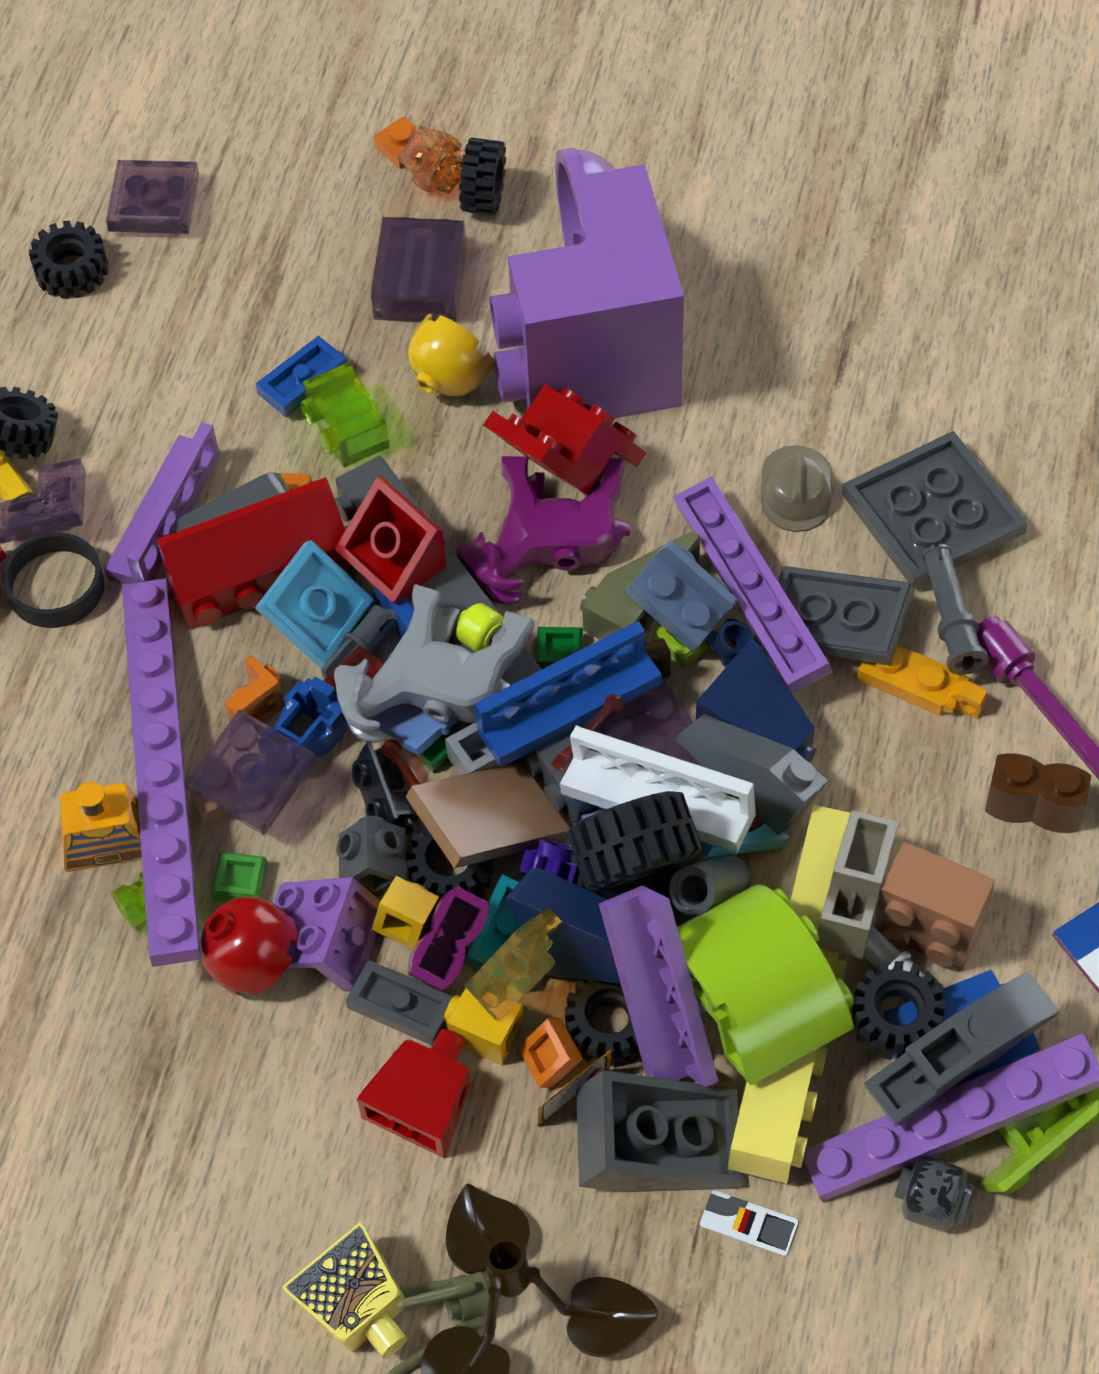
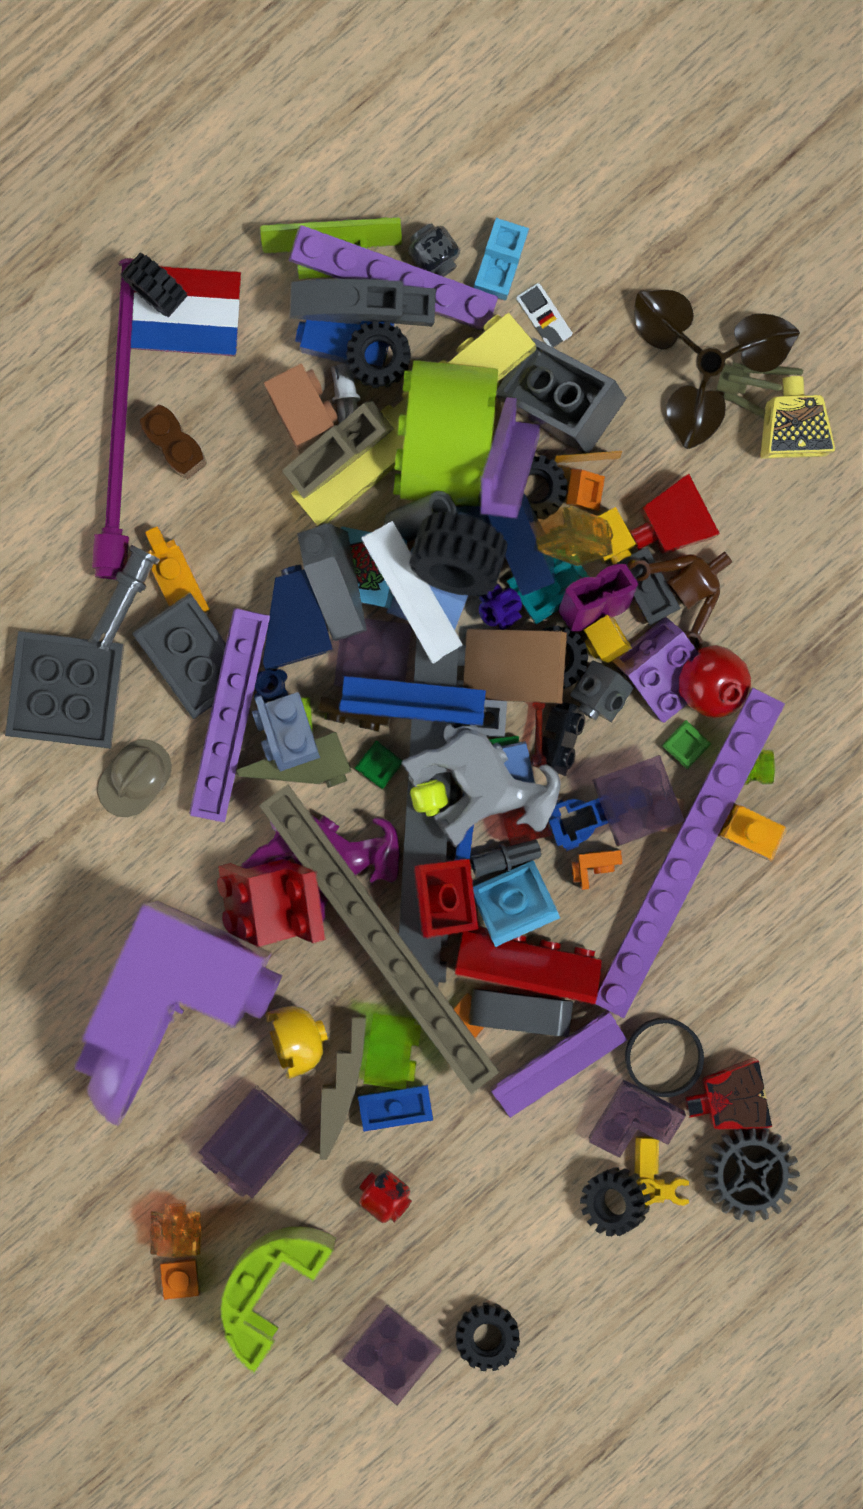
camera: 150 degrees left, 30 degrees up
(255, 300) = (384, 1196): none -> red head
(315, 171) = (246, 1330): none -> lime cylinder
(354, 1031) = (690, 585): none -> reddish brown piece
(370, 359) = (338, 1098): none -> dark tan slope
(434, 474) = (380, 939): none -> dark tan plate
(482, 176) = (155, 1187): black tyre -> none
(612, 704) = (390, 675): clear red hinge -> none
(850, 1245) = (501, 258): none -> medium azure slope

